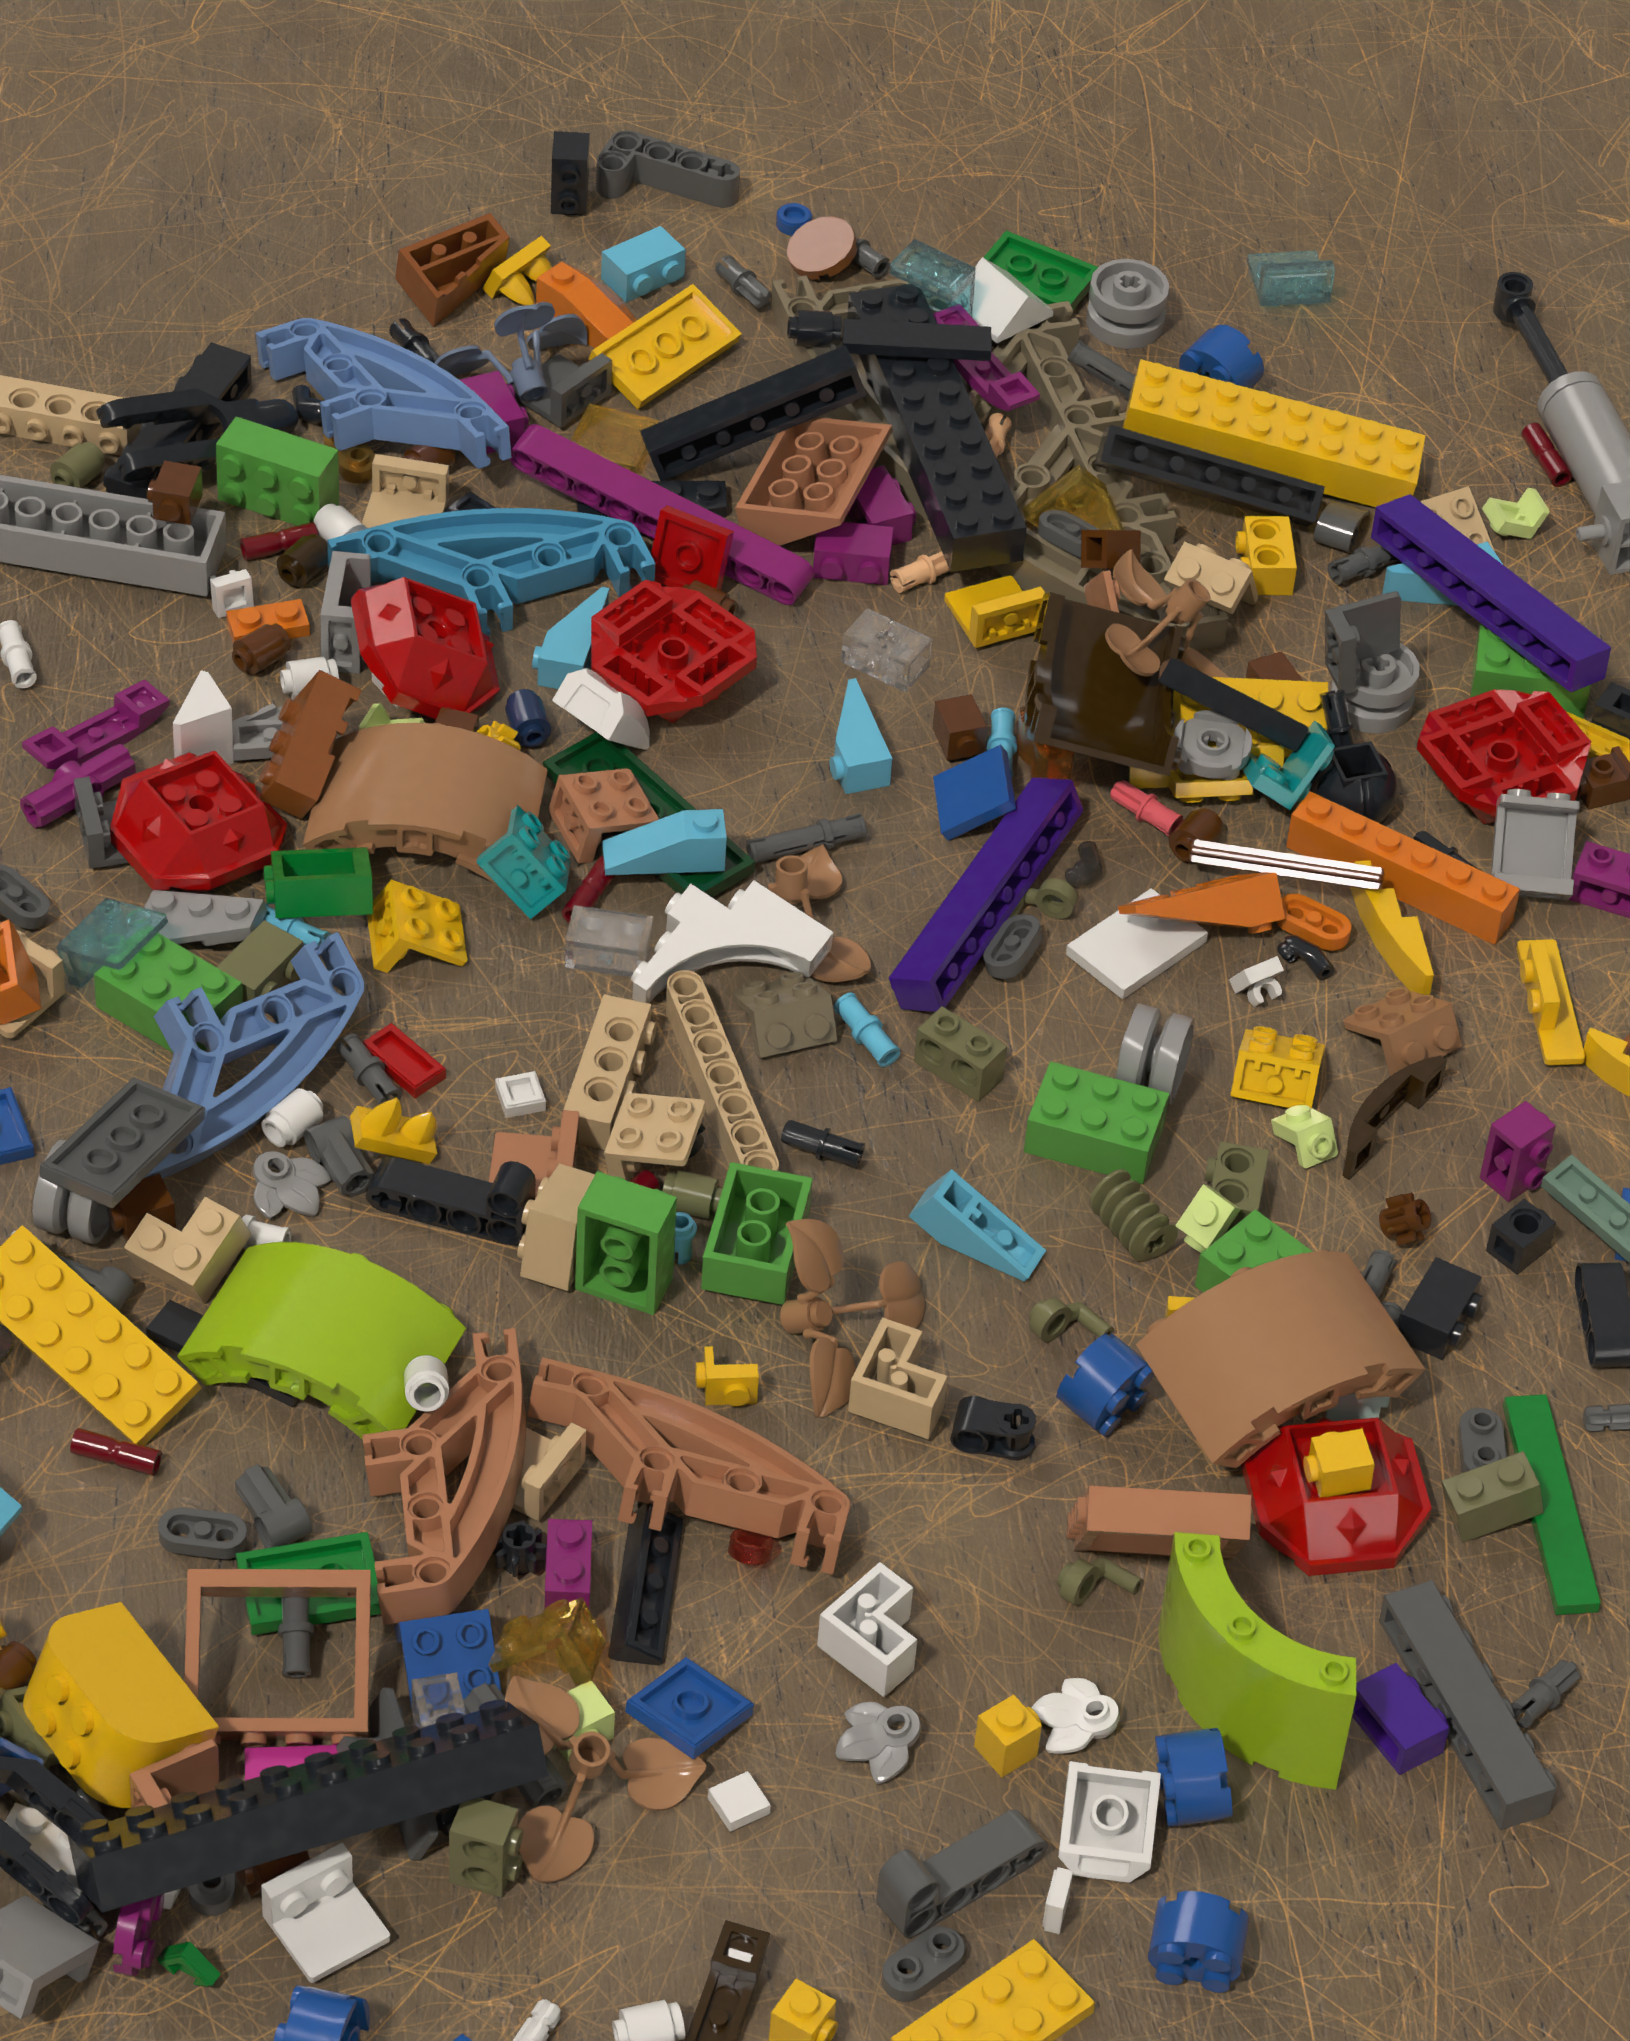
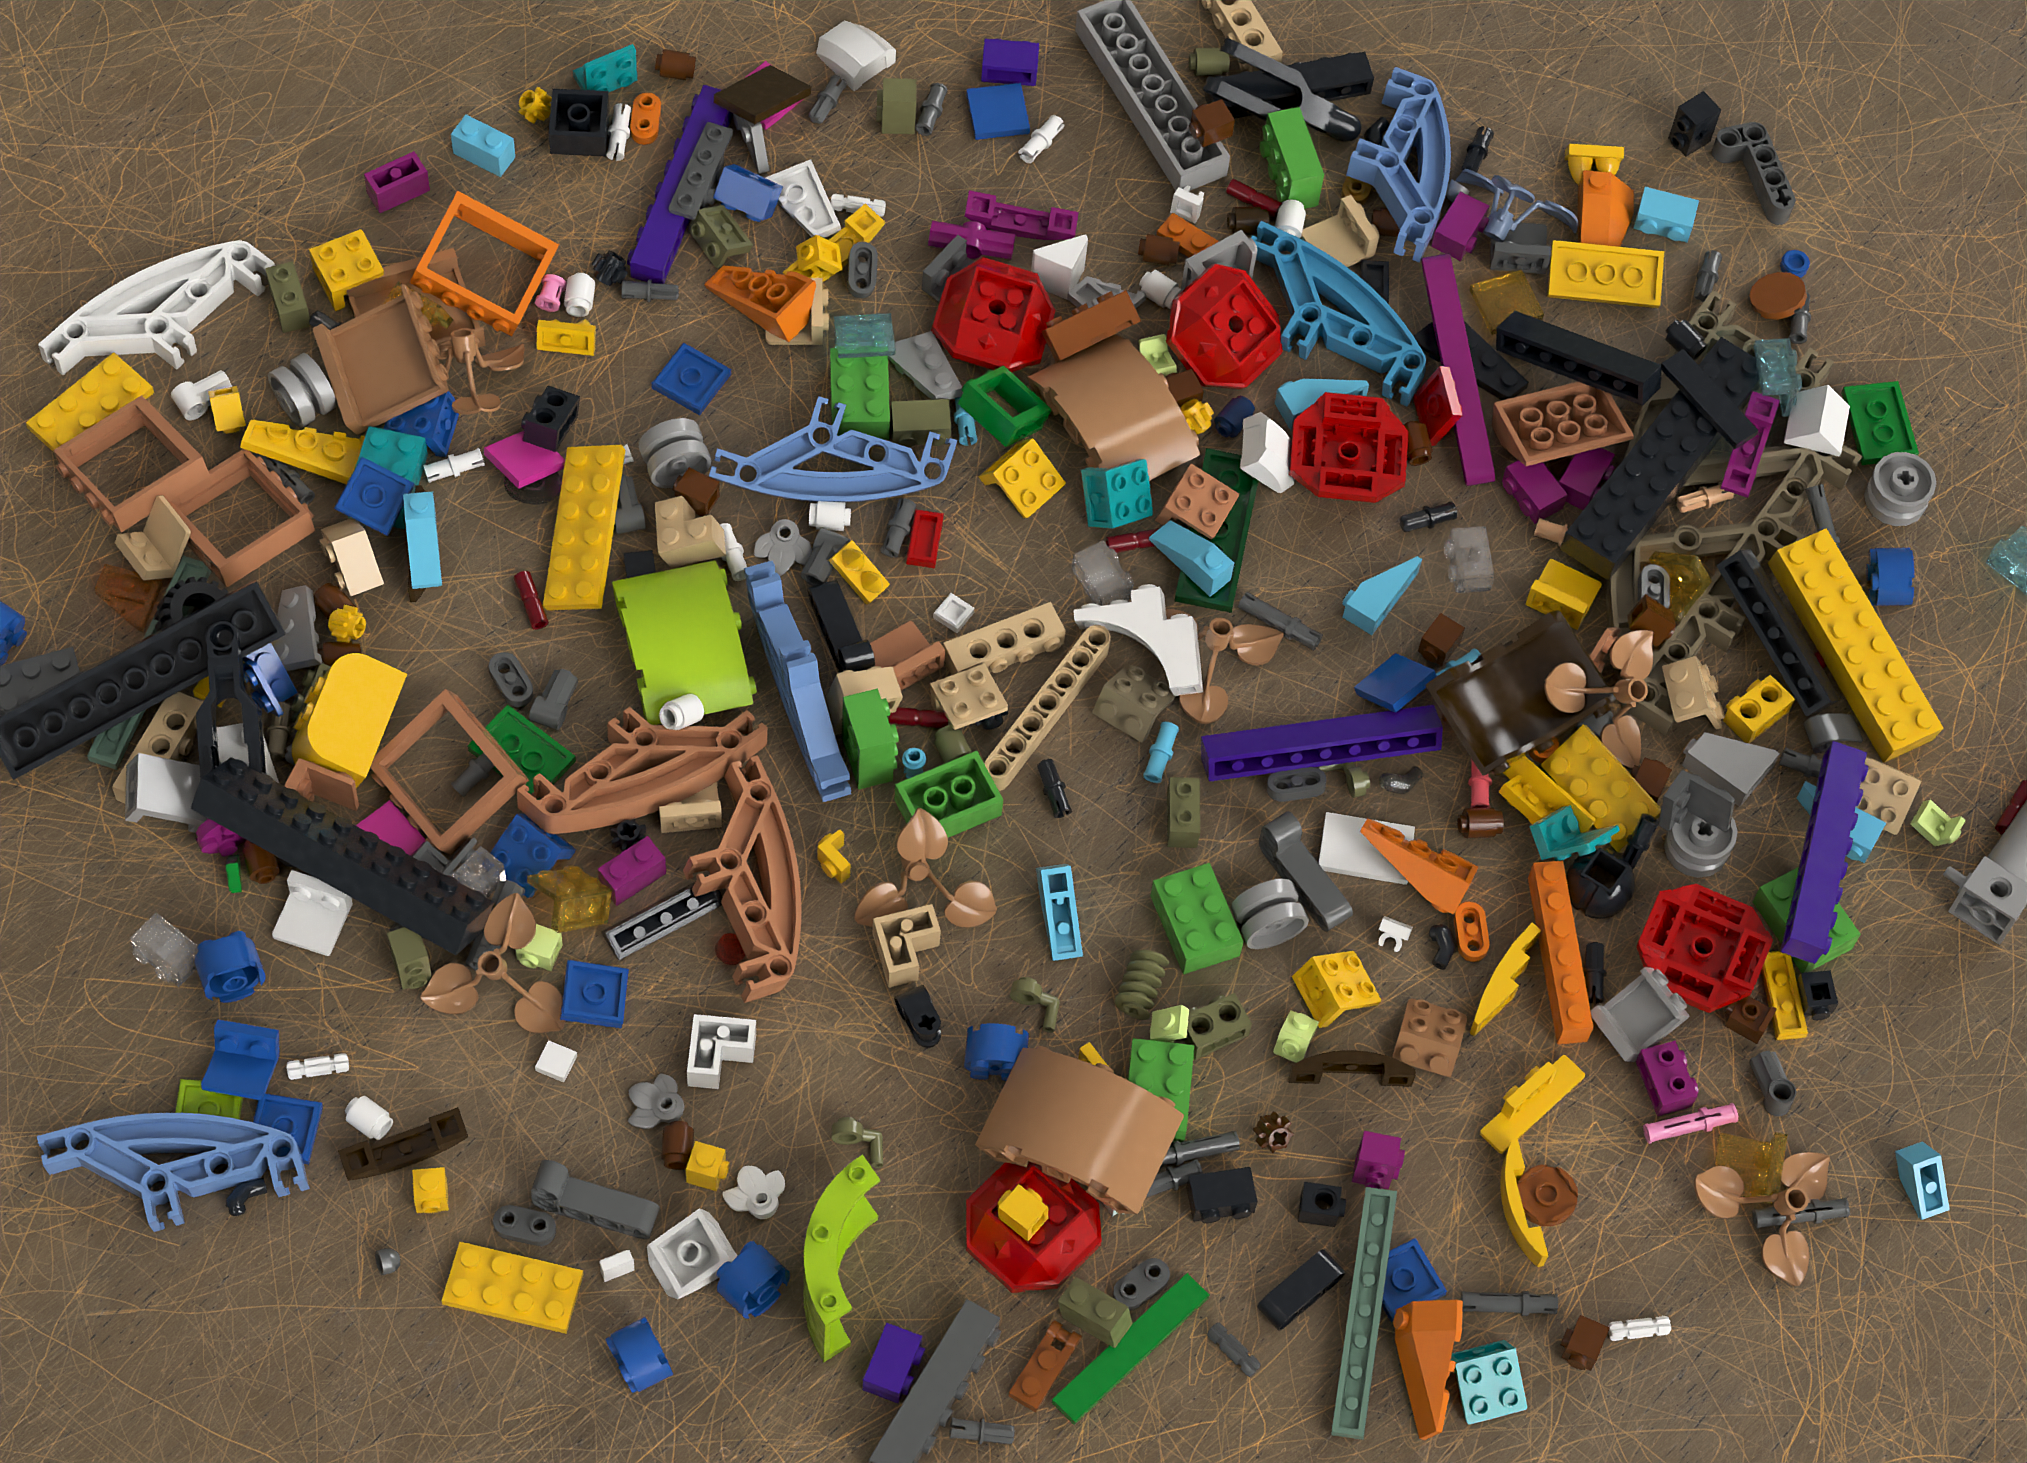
camera: 50 degrees right, 15 degrees up
(122, 1142) = (706, 448): dark grey tile -> none
(201, 1923) = (260, 863): none -> reddish brown brick
(451, 265) = (1556, 121): dark orange wedge -> none
(488, 1263) = (797, 681): none -> medium blue piece
(802, 651) = (1427, 517): none -> black axle
(955, 1748) = (677, 1145): none -> reddish brown brick
(1108, 1005) = (1292, 861): none -> dark grey beam
(1145, 1520) = (931, 1172): nougat window -> none
(1212, 762) = (1550, 767): light grey plate -> none
(1232, 703) = (1581, 770): black slope -> none
(1287, 865) = (1491, 887): axle -> none
(1297, 616) = (1729, 764): none -> light grey slope
(1510, 1591) = (1044, 1367): none -> dark orange plate

